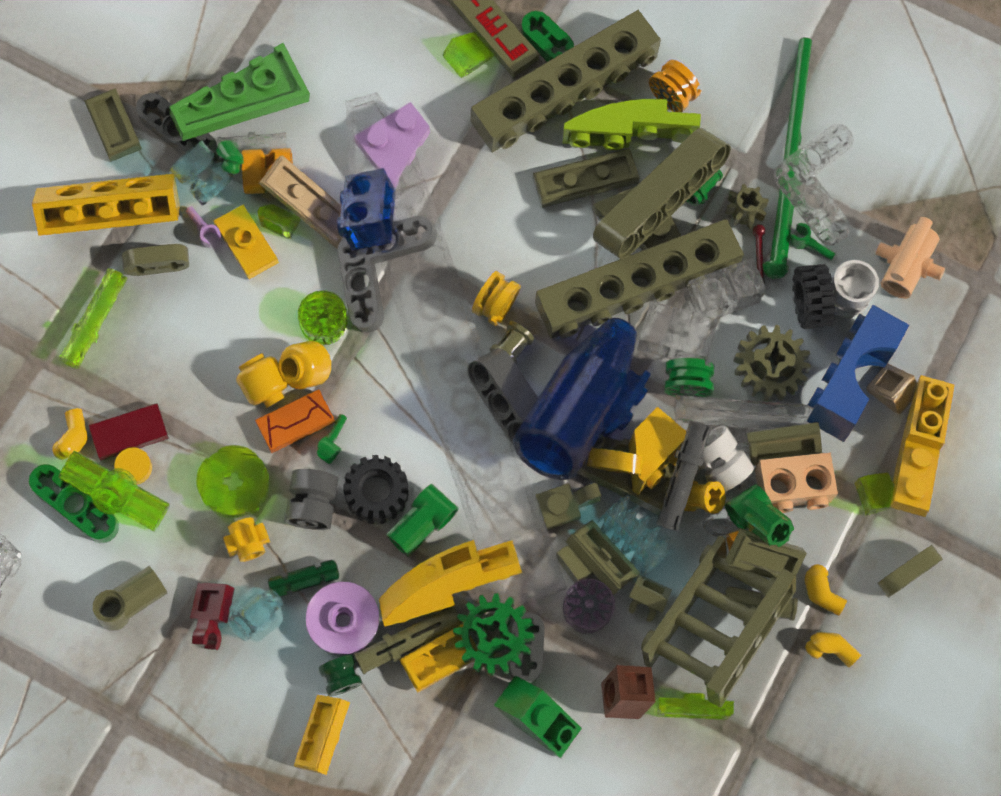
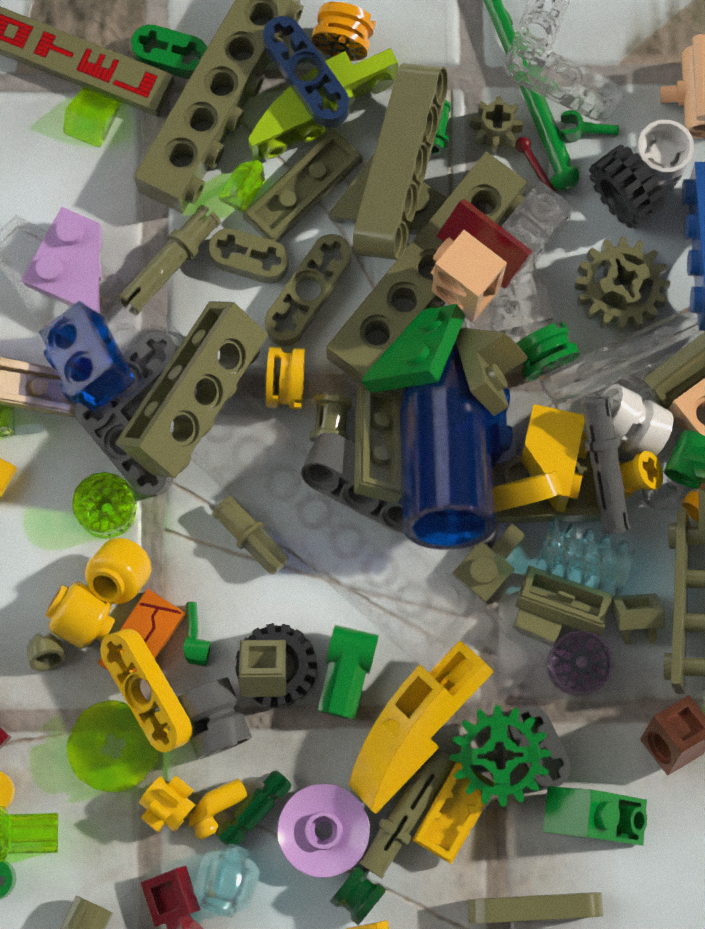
camera: 25 degrees left, 5 degrees up
(229, 399) = (45, 652): none -> olive hinge
(276, 430) = (171, 711): none -> yellow beam
(277, 557) = (211, 804): none -> yellow arm
(364, 483) = (262, 668): none -> olive slope
(377, 282) = (172, 398): none -> olive brick
(410, 392) = (251, 535): none -> olive axle
(458, 755) = (535, 907): none -> olive beam
(476, 172) = (181, 246): none -> olive pin
(526, 199) = (251, 246): none -> olive beam
(532, 375) = (378, 445): none -> olive tile
(545, 155) = (243, 185): none -> clear neon green slope
(552, 235) = (315, 258): none -> olive beam
(597, 327) = (418, 352): none -> green wing
(636, 85) = (280, 56): none -> dark blue beam
(638, 359) = (485, 360): none -> olive slope
(659, 291) = (467, 274): none -> light nougat brick
(686, 279) = (490, 234): none -> dark red tile

